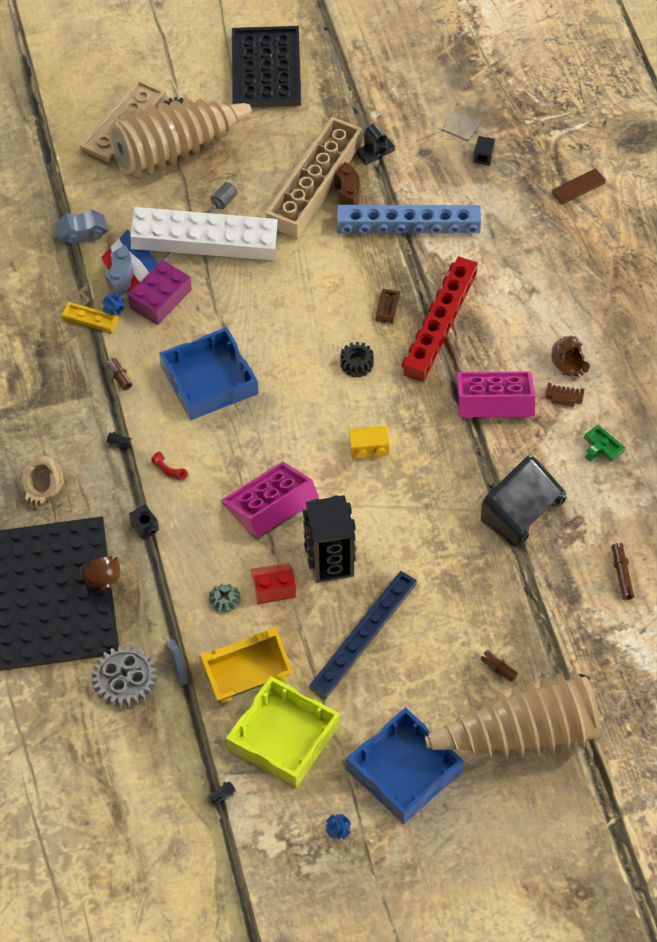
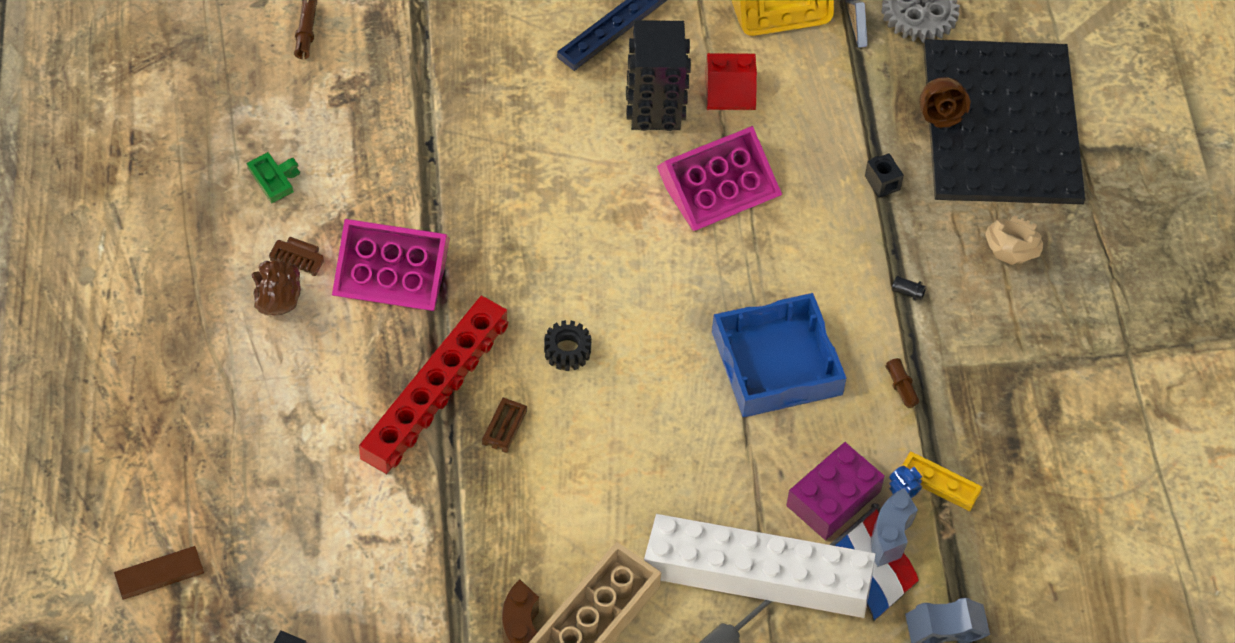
camera: 175 degrees left, 0 degrees up
(157, 459) = (857, 257): red piece -> none
(224, 605) = (792, 87): sand green gear -> none
(369, 442) = (576, 227): yellow brick -> none
(409, 219) = (449, 562): medium blue brick -> none
(521, 500) = (397, 113): black windscreen -> none

